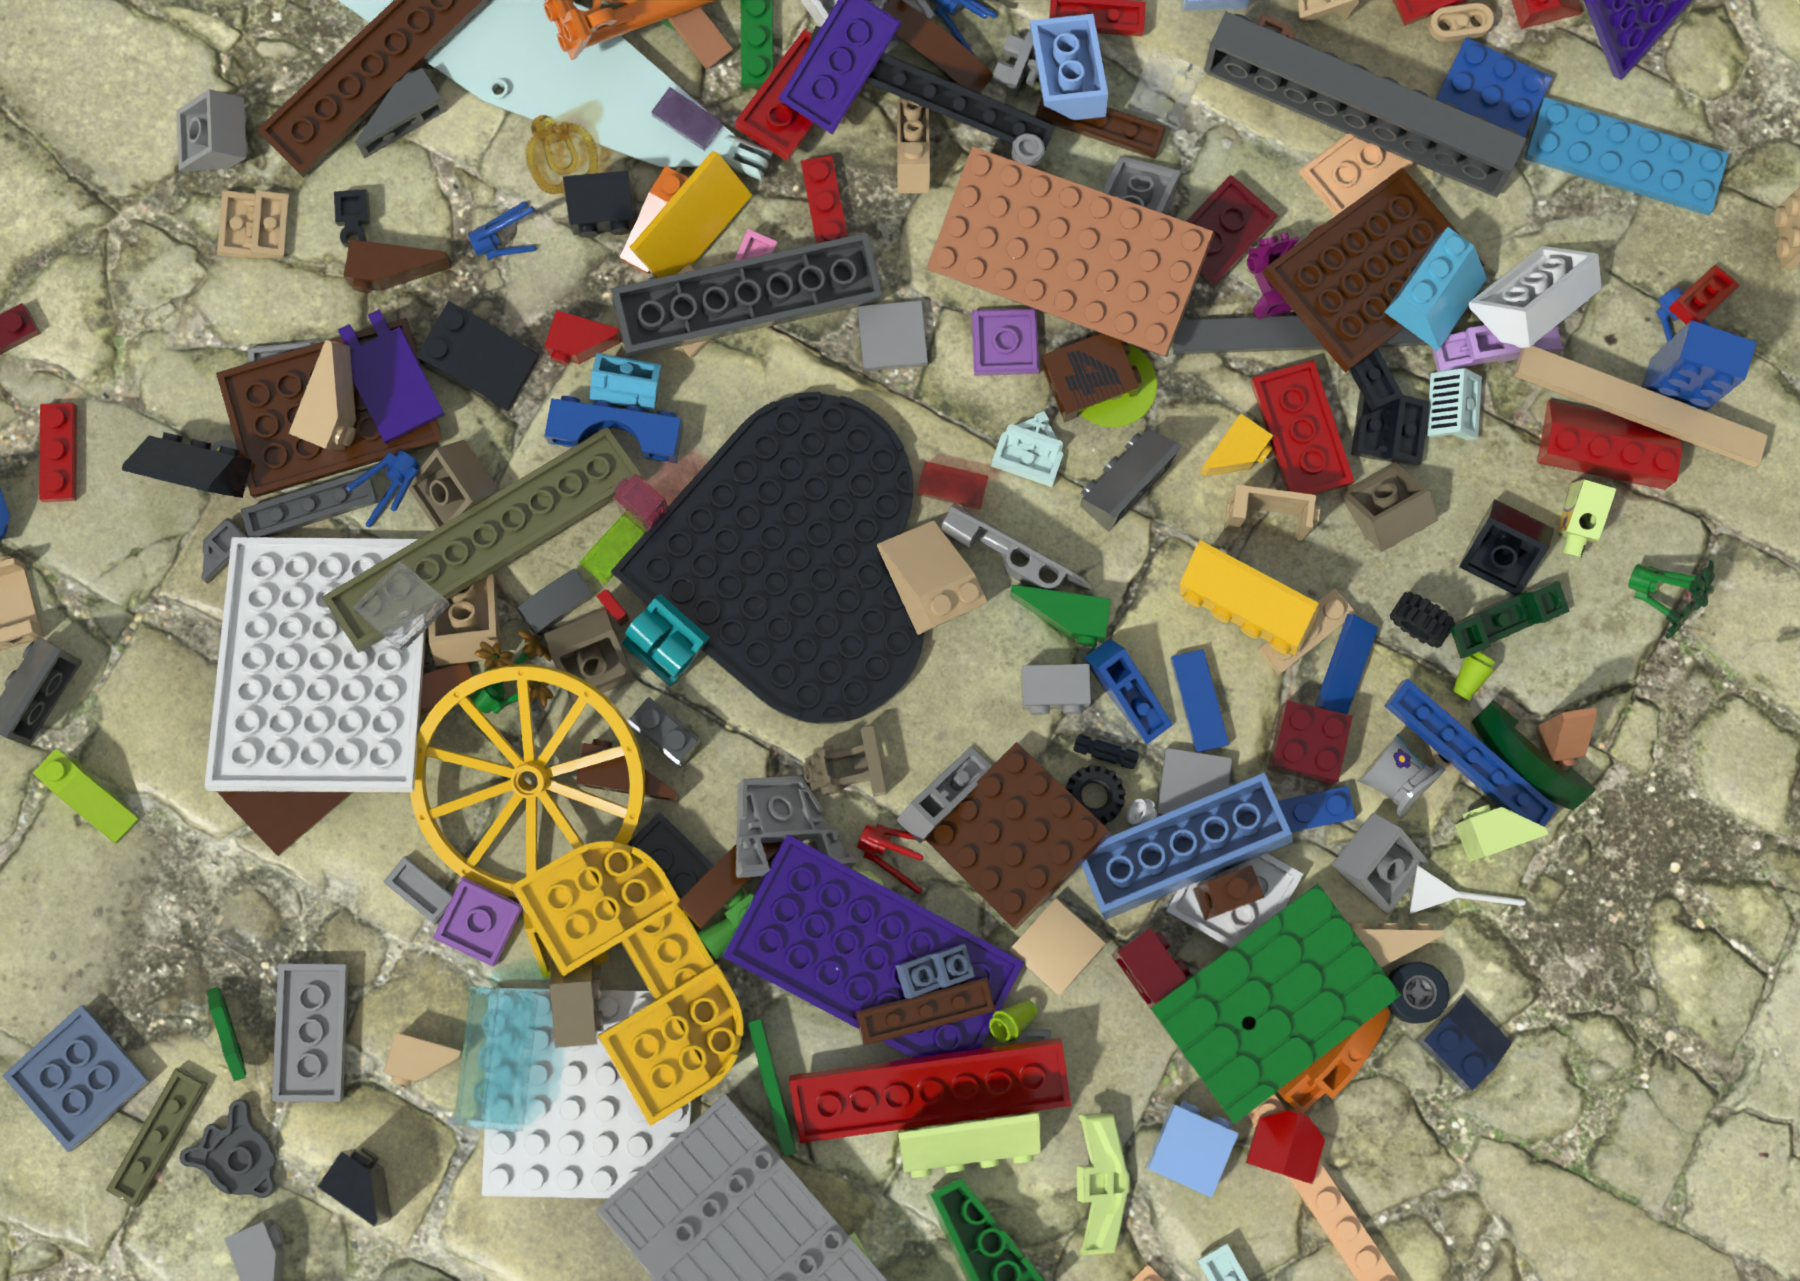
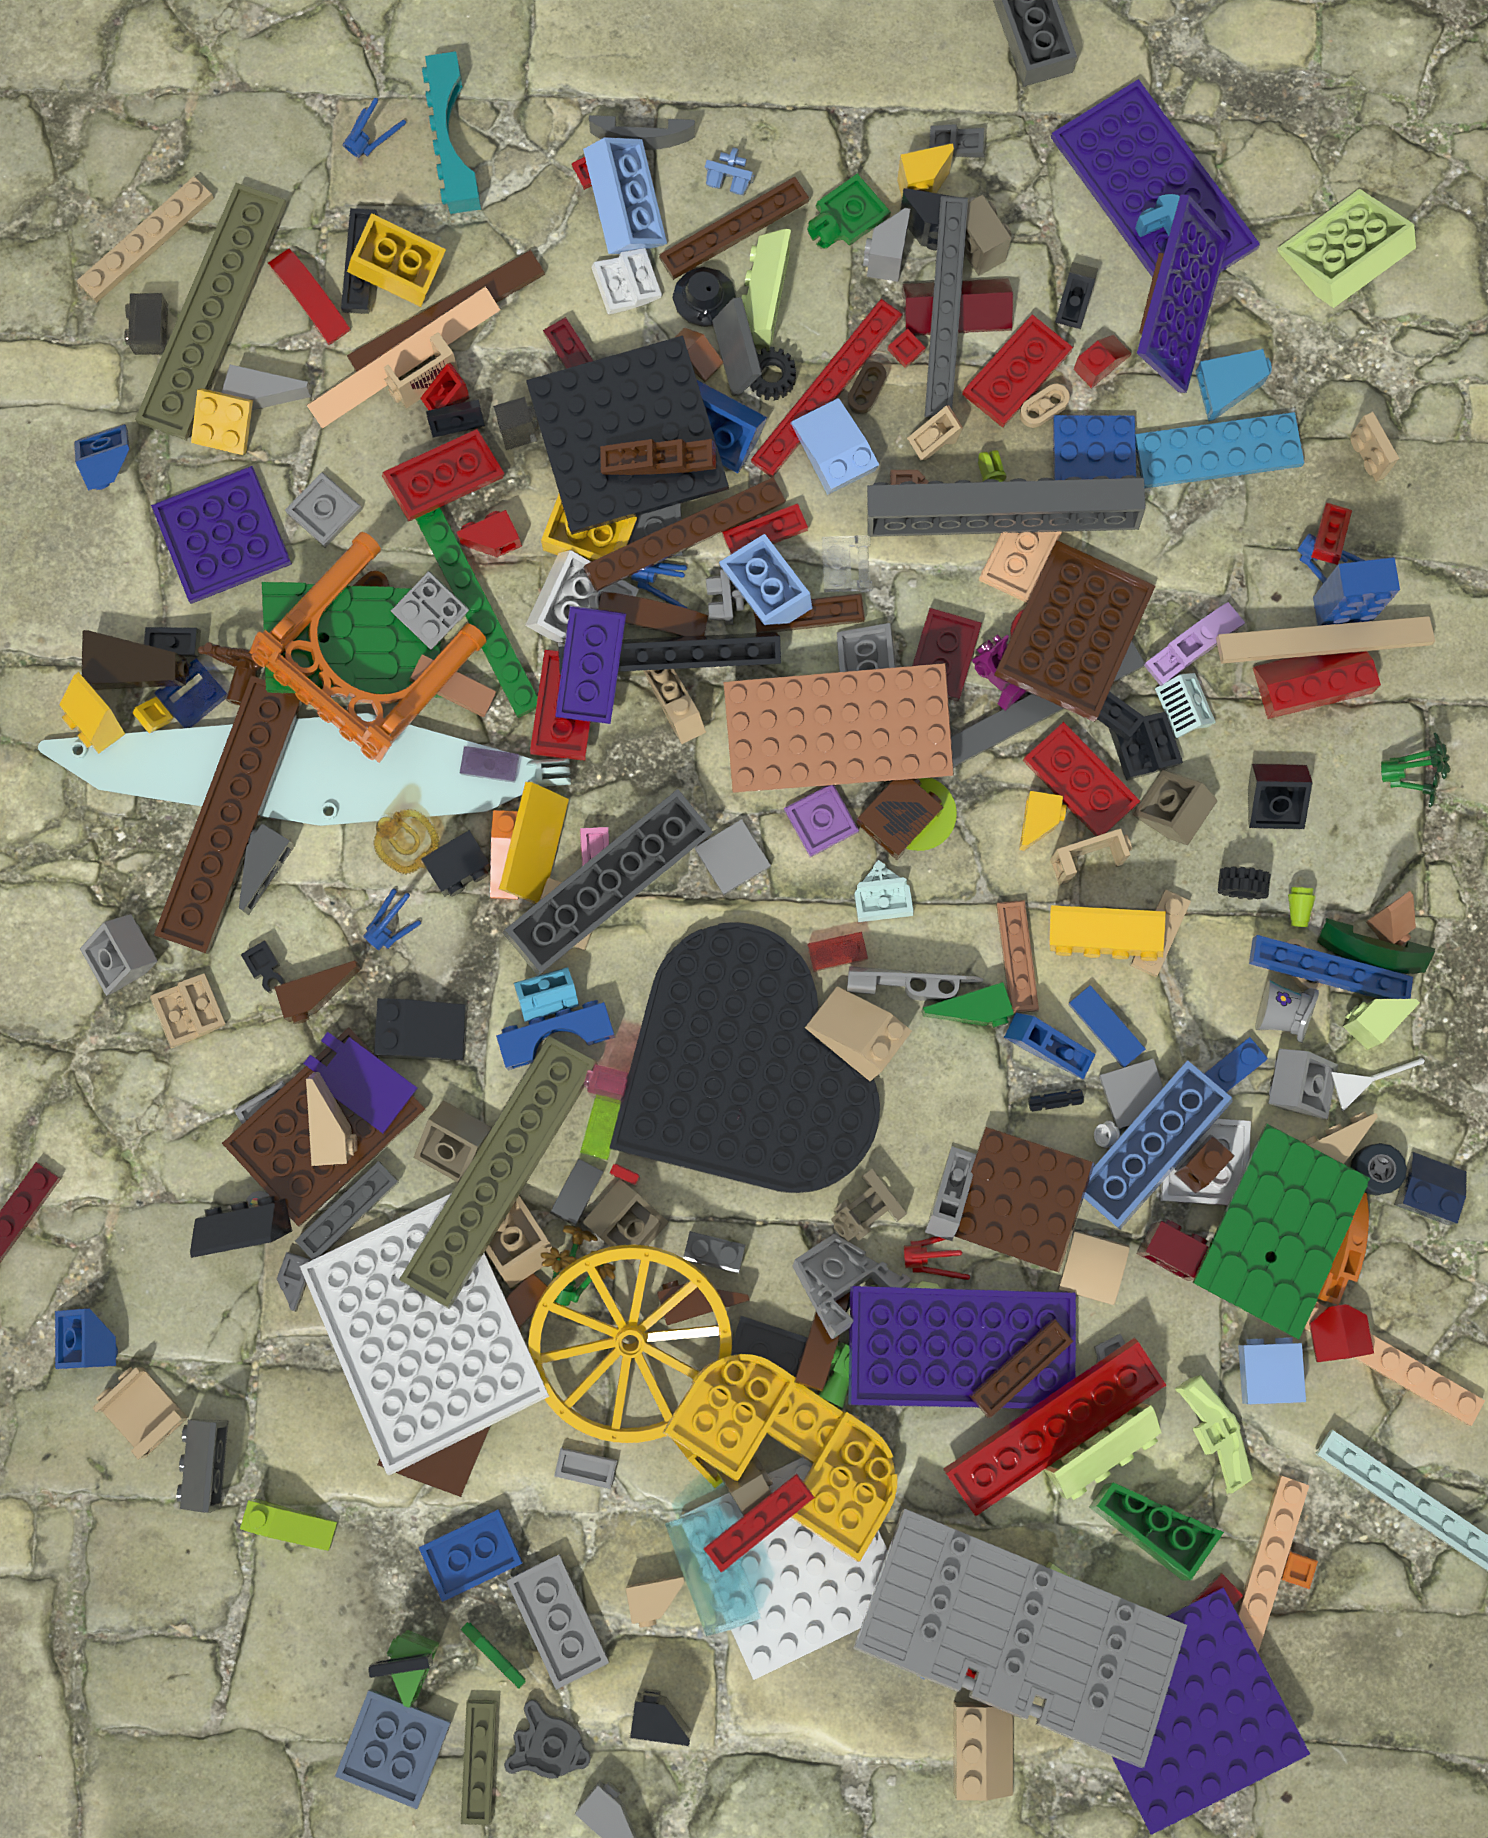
camera: 25 degrees left, 0 degrees up
(58, 452) = (125, 1266): red plate -> none
(118, 990) = (400, 1665): none -> black tile
(135, 999) = (410, 1683): none -> bright green slope
(256, 919) = (470, 1555): none -> blue plate
(401, 471) = (405, 1147): blue plant -> none
(401, 606) = (465, 1256): clear tile -> none
(478, 921) = (644, 1470): medium lavender tile -> none
(563, 1031) = (759, 1523): none -> red tile
(578, 338) = (491, 978): red slope -> none
(664, 640) = (679, 1181): teal plate -> none
(772, 1087) = (933, 1484): green tile -> none
(823, 199) = (627, 778): red plate -> none
(935, 971) = (1013, 1334): sand blue slope -> none
(1012, 1021) = (1089, 1343): lime cone -> none
(1028, 150) = (769, 665): light grey tile -> none
(1055, 688) = (993, 1070): light grey brick -> none
(1109, 781) = (1069, 1121): black tyre -> none
(1129, 477) = (969, 881): dark grey slope -> none
(1141, 582) = (1017, 956): none -> nougat tile
(1309, 742) = (1206, 1018): dark red brick -> none
(1346, 665) = (1204, 946): blue tile -> none
(1372, 56) = (991, 466): none -> lime arm
(1439, 289) = (1132, 623): medium azure slope -> none
(1508, 617) = (1305, 849): dark green slope -> none
(1538, 294) = (1208, 591): white slope -> none
(1592, 504) = (1321, 734): yellowish green torso -> none
(1676, 87) = (1230, 380): none -> dark azure slope

